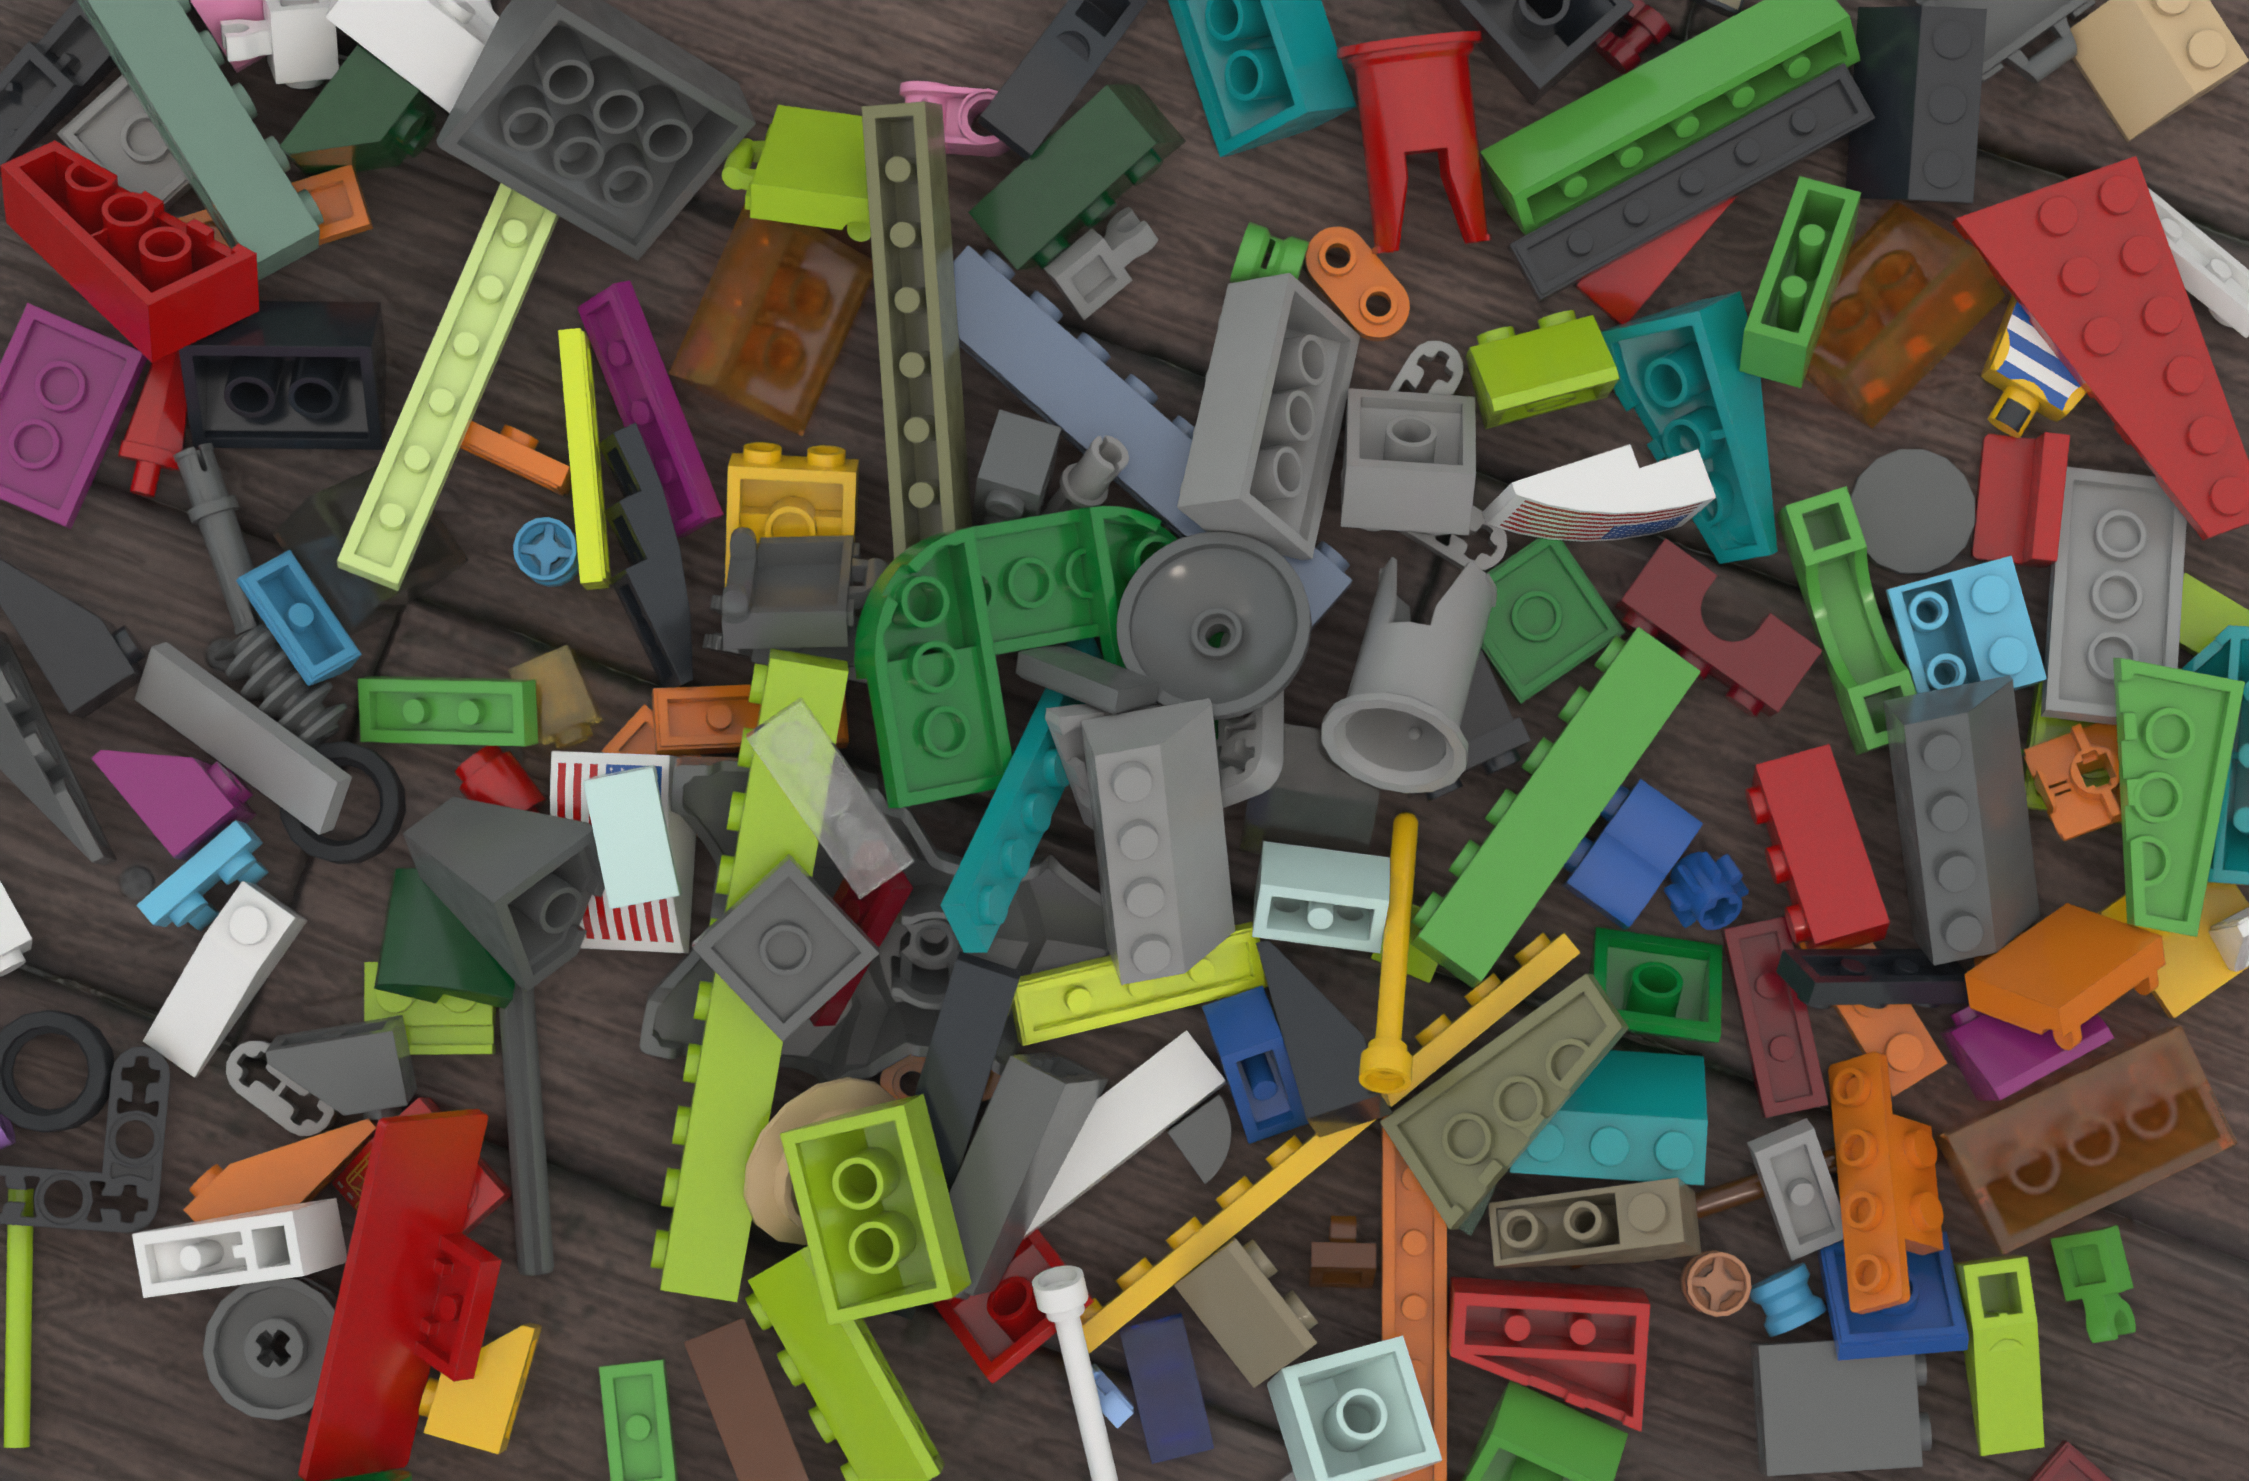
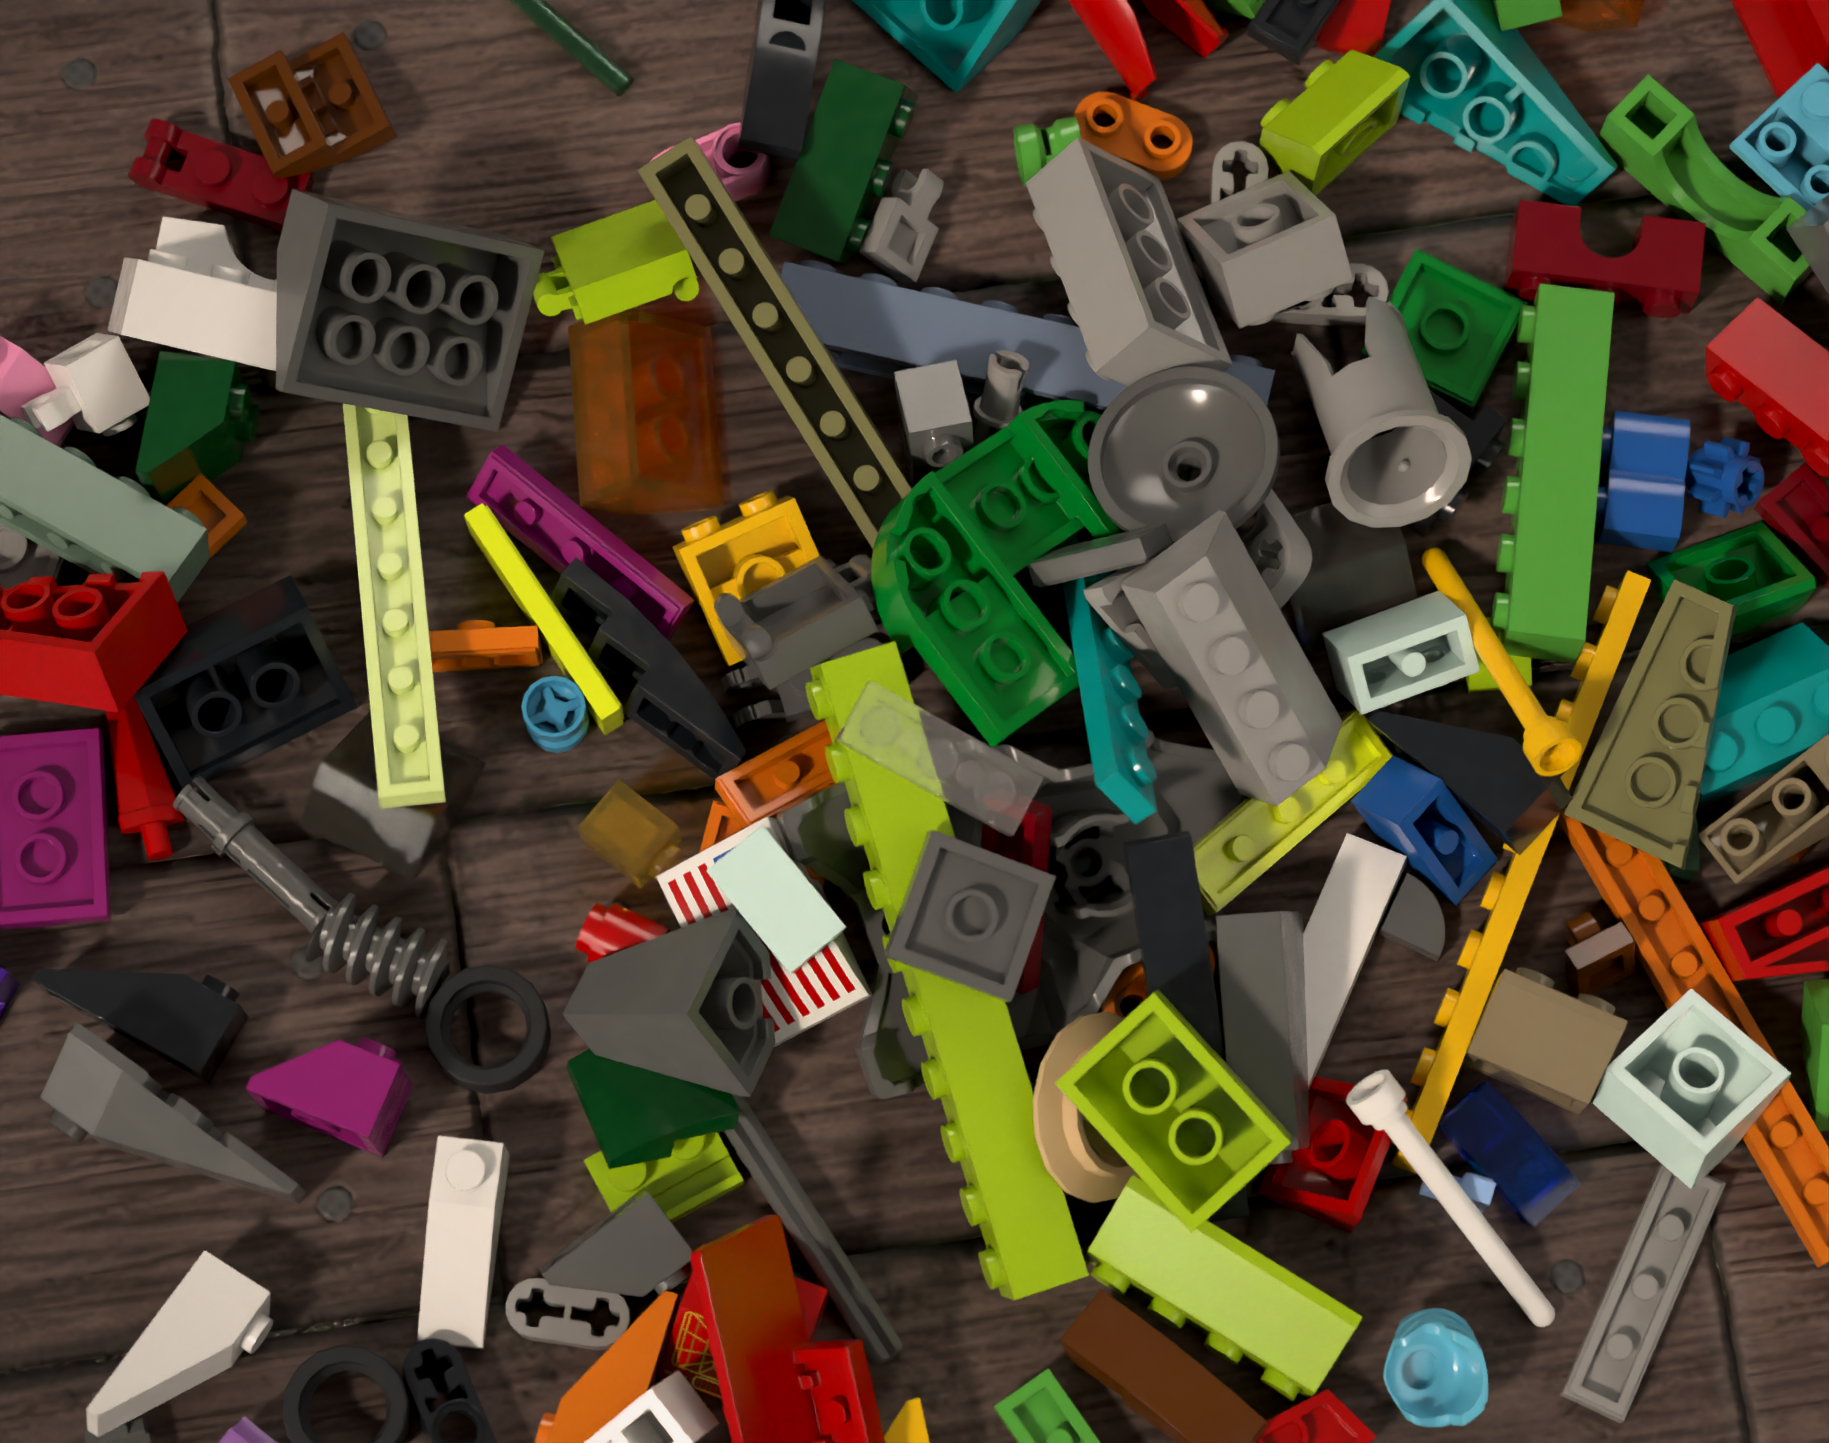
camera: 30 degrees left, 10 degrees down
(224, 858) = (388, 1177): medium azure plate -> none
(243, 738) = (380, 1009): light grey tile -> none
(299, 619) = (366, 880): dark azure slope -> none
(448, 710) = (542, 892): bright green plate -> none
(1604, 498) = (1450, 190): white slope -> none
(1913, 511) = (1714, 76): dark grey tile -> none

